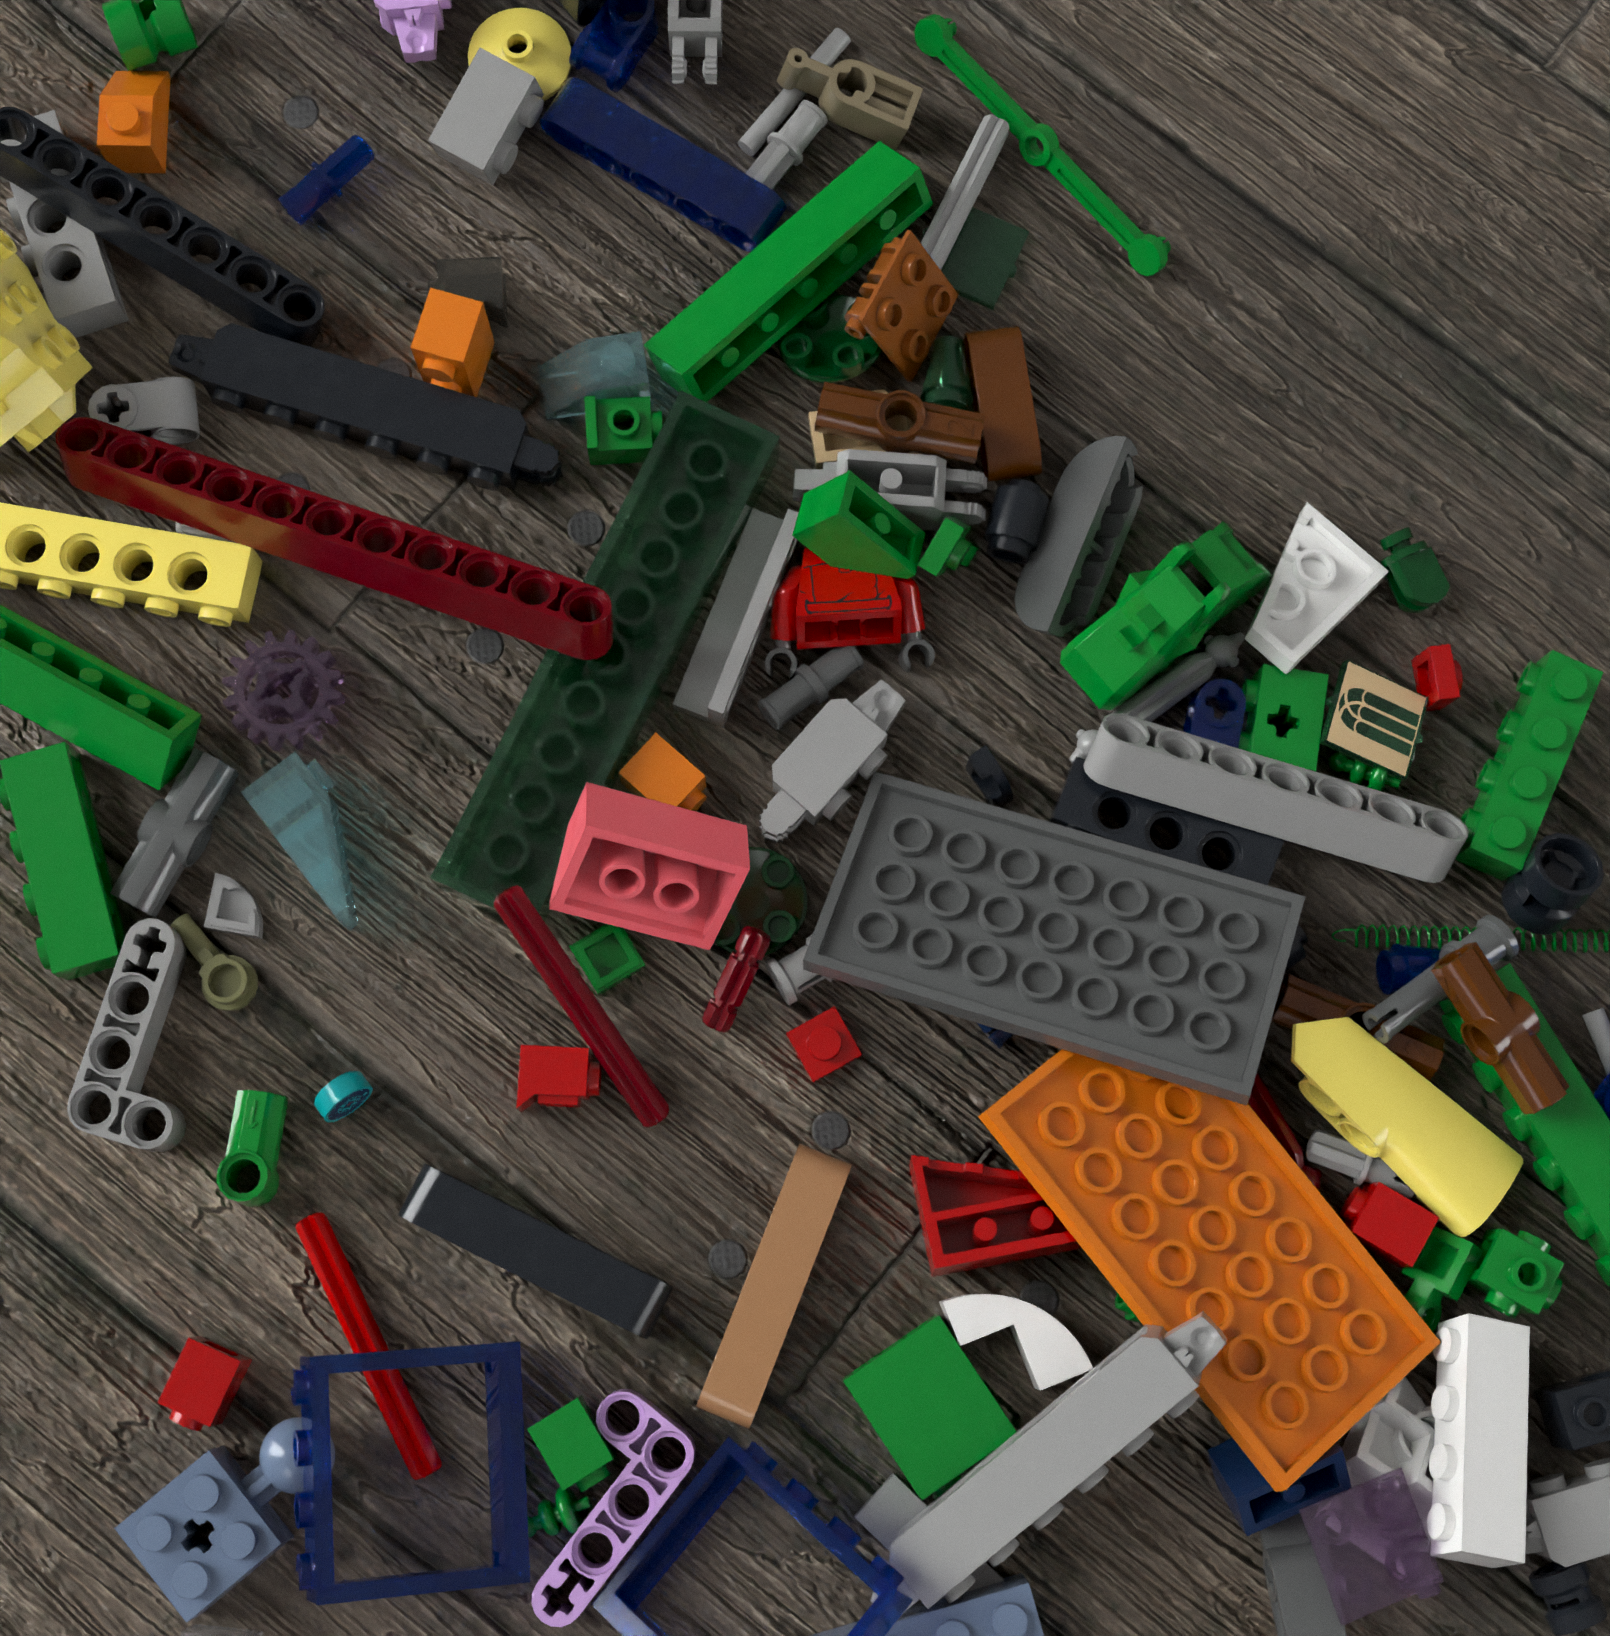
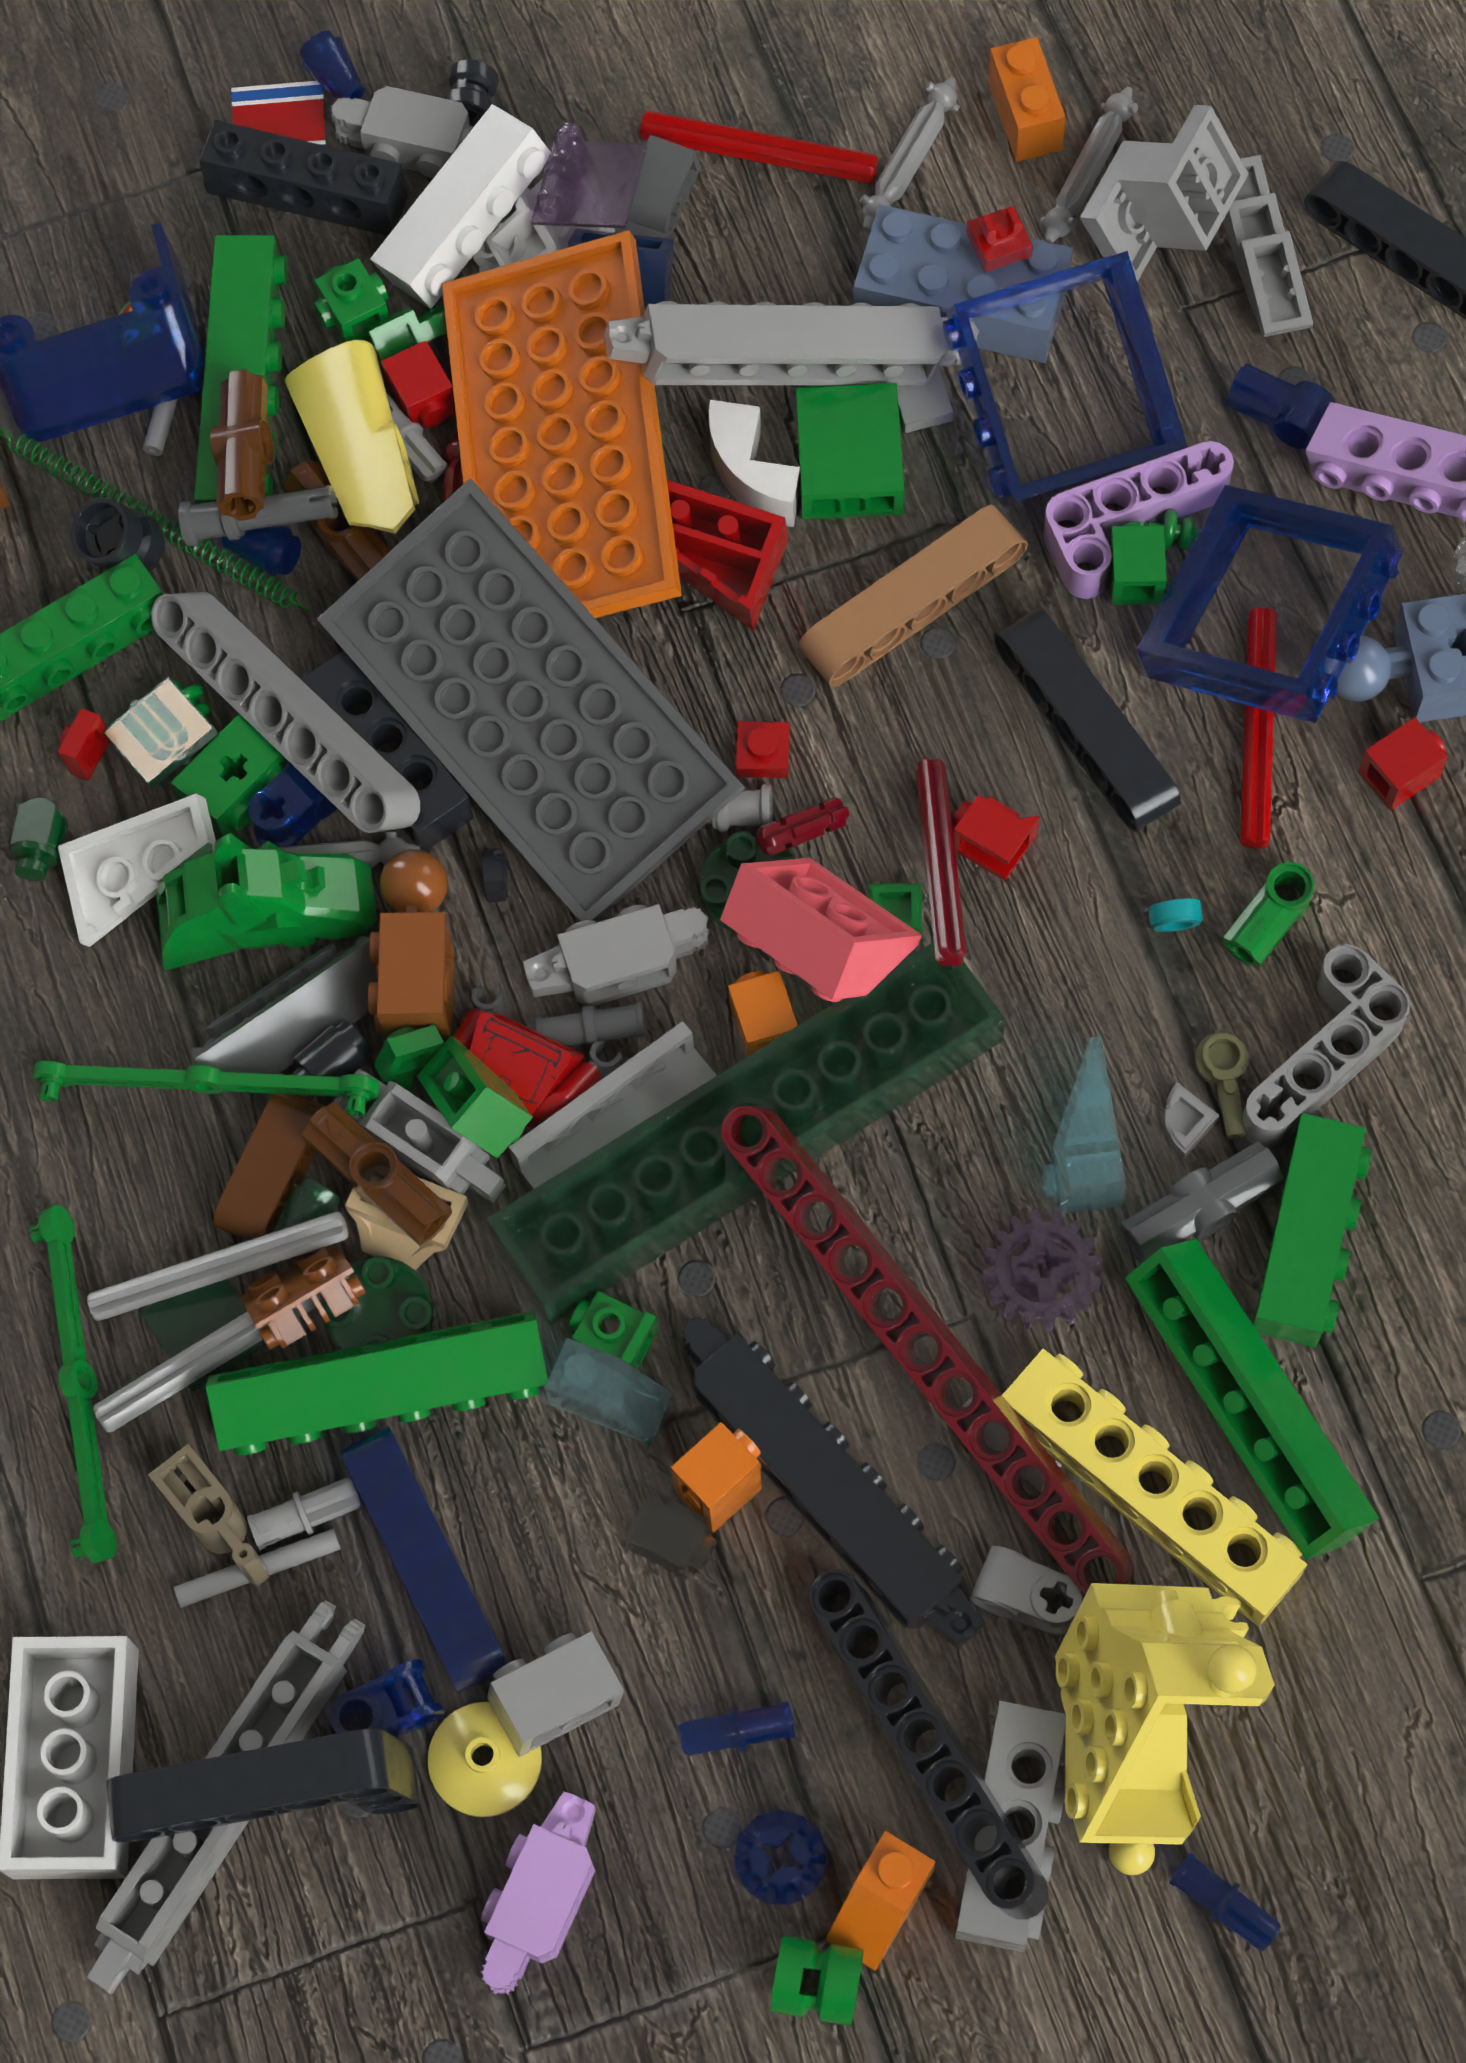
camera: 140 degrees left, 10 degrees down
(254, 124) = (787, 1884): none -> clear blue gear
(968, 483) = (206, 1080): none -> green piece
(986, 291) = (217, 1266): none -> light grey axle
(999, 638) = (413, 948): none -> dark orange brick

